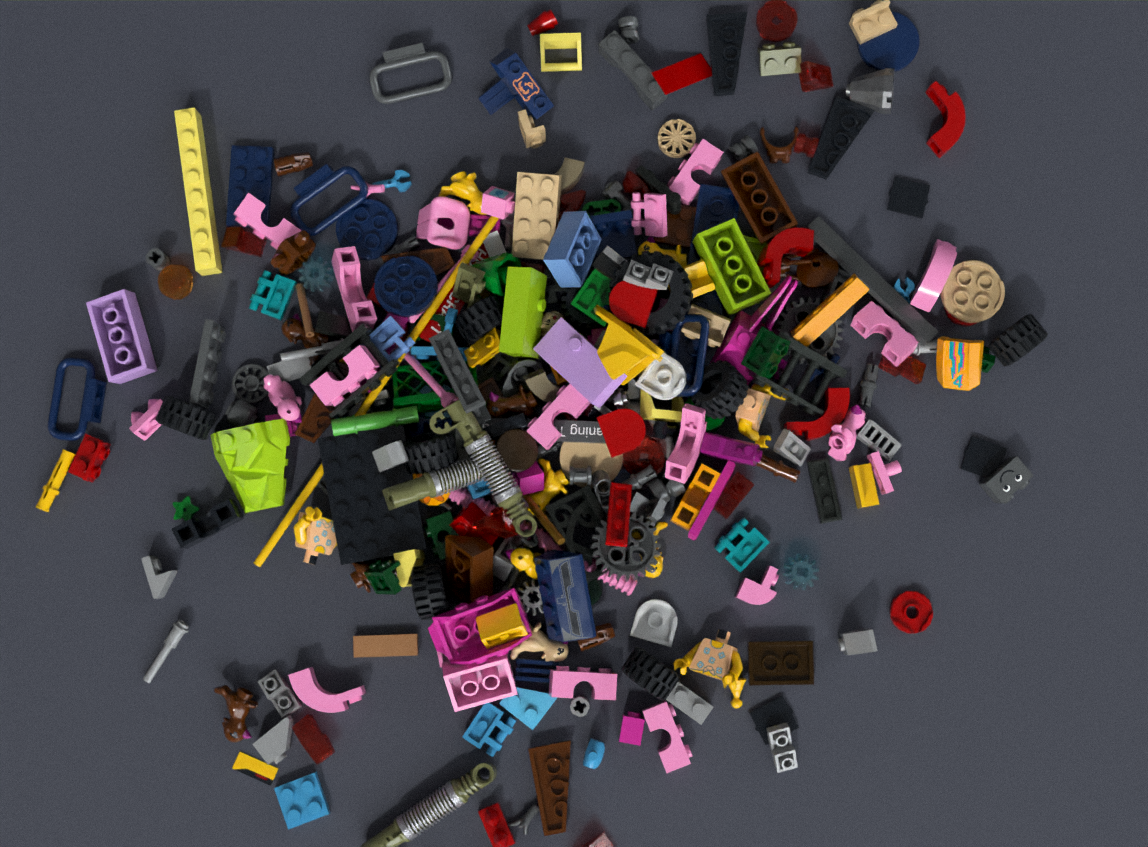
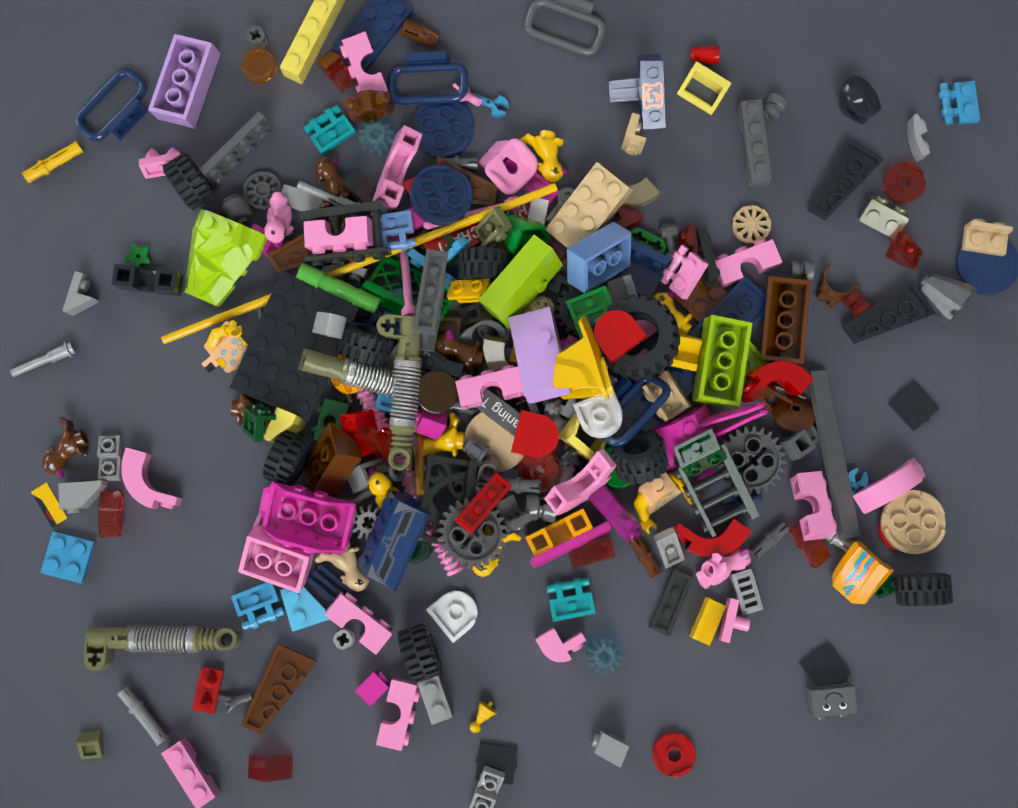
camera: 30 degrees right, 0 degrees up
(90, 458) = (92, 162): red bracket -> none
(304, 310) = (345, 159): medium nougat piece -> none
(385, 645) = (222, 478): medium nougat tile -> none
(498, 202) = (563, 177): bright pink brick -> none
(501, 626) = (322, 527): yellow panel -> none
(594, 753) = (327, 686): dark azure piece -> none
(603, 633) = (404, 592): reddish brown hinge -> none
(644, 276) = (639, 317): light grey slope -> none
(682, 74) = (793, 174): red sticker -> none
(713, 659) = (480, 678): torso -> none
(780, 663) = (534, 720): dark brown plate -> none
(829, 310) = (779, 454): light orange fence -> none
(953, 119) = (999, 365): red arch -> none

